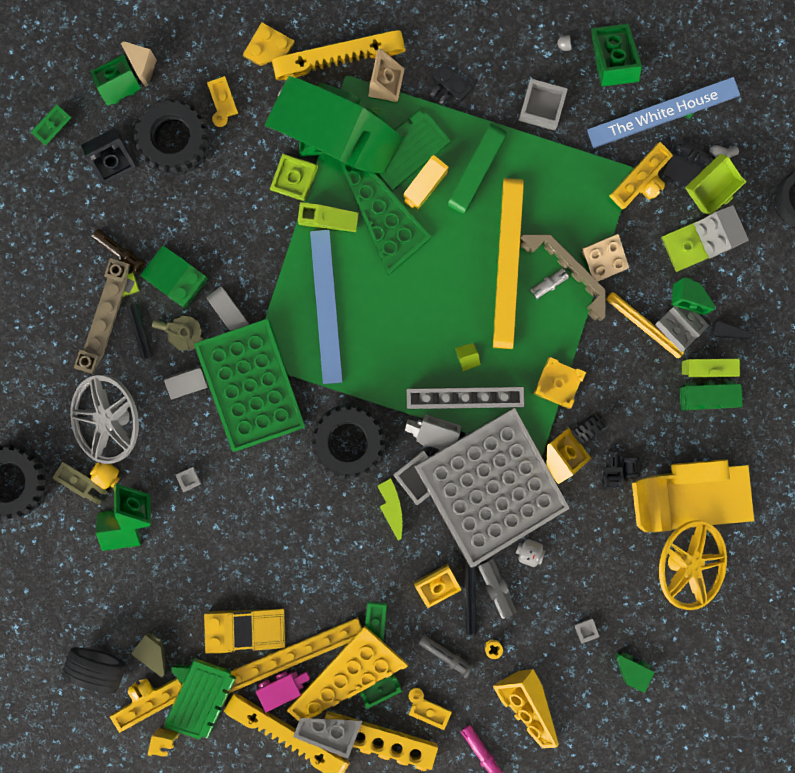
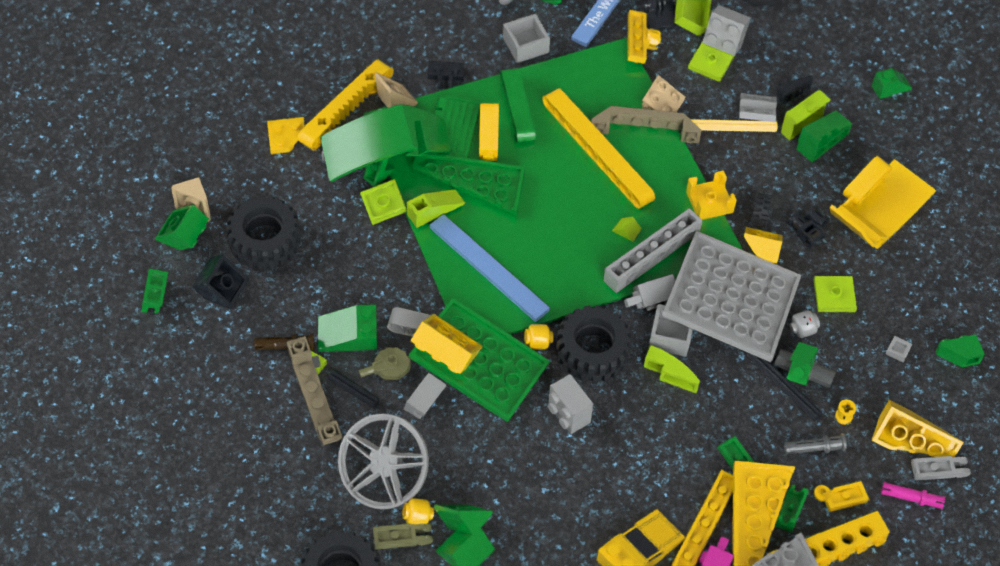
camera: 45 degrees left, 30 degrees down
(188, 479) = (490, 466): light grey plate -> none
(223, 101) = (280, 188): yellow hinge -> none
(227, 359) = (446, 343): none -> yellow slope
(284, 480) = (570, 404): none -> light grey piece
(313, 399) = (538, 336): none -> yellow head
(437, 586) = (758, 399): yellow slope -> none
(491, 589) = (802, 363): none -> green slope
(521, 747) = (939, 468): none -> light grey hinge
(549, 283) = (639, 141): light grey pin -> none
(583, 543) = (835, 294): none -> lime plate
(690, 565) = (923, 245): yellow wheel -> none
(691, 297) = (747, 84): green slope -> none

